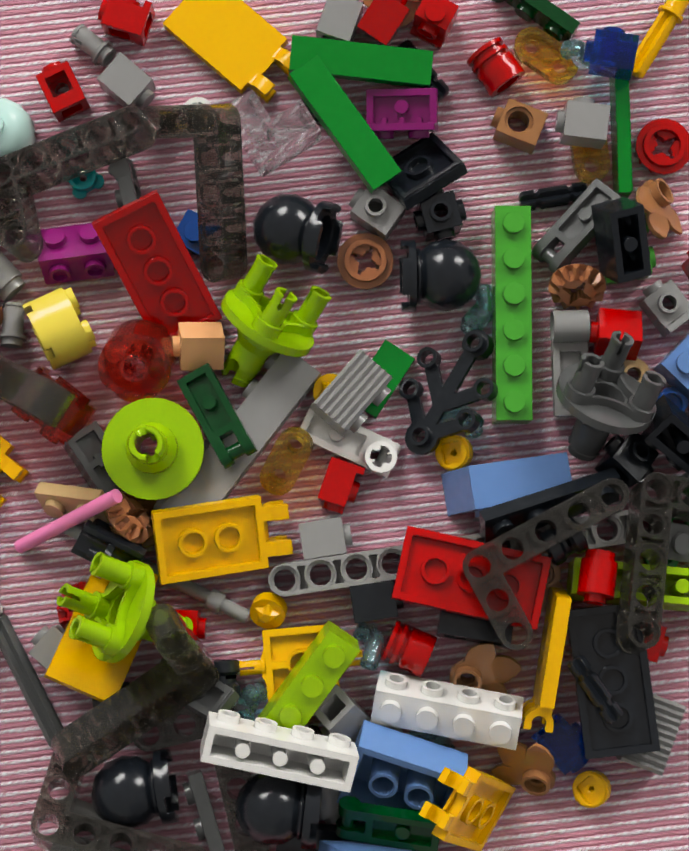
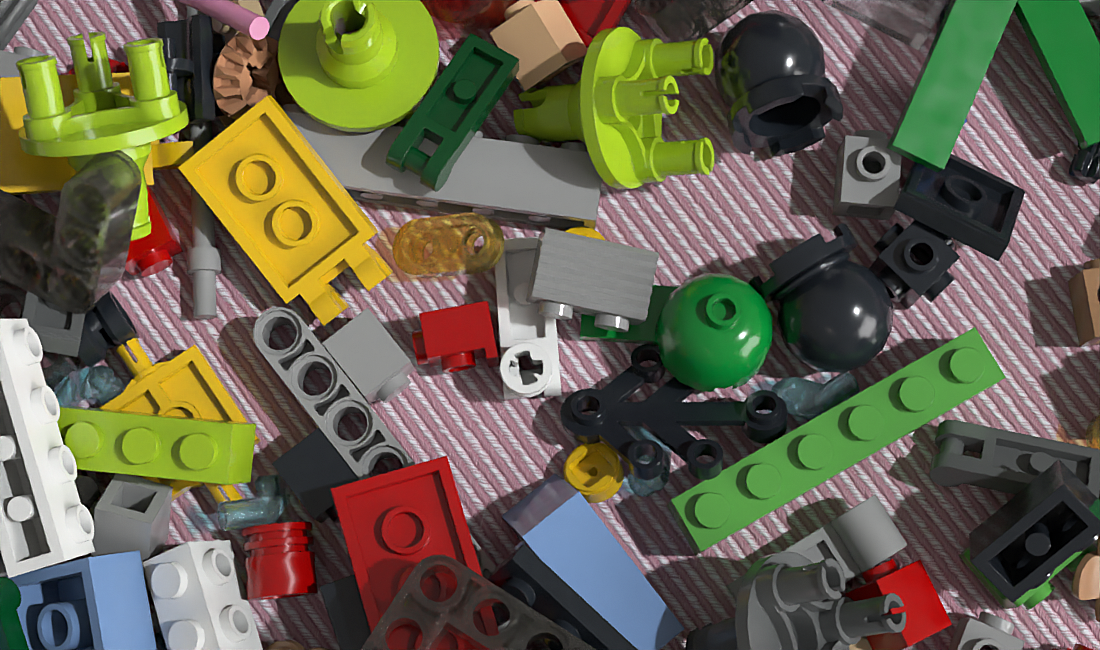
camera: 65 degrees right, 5 degrees down
(268, 610) = (228, 339): yellow tile -> none
(358, 246) = (806, 182): nougat gear -> none
(402, 111) = (1028, 132): magenta bracket -> none
(417, 344) = (714, 332): none -> green cylinder
(552, 196) = (1037, 405): black axle -> none
(573, 276) = (939, 493): nougat gear -> none

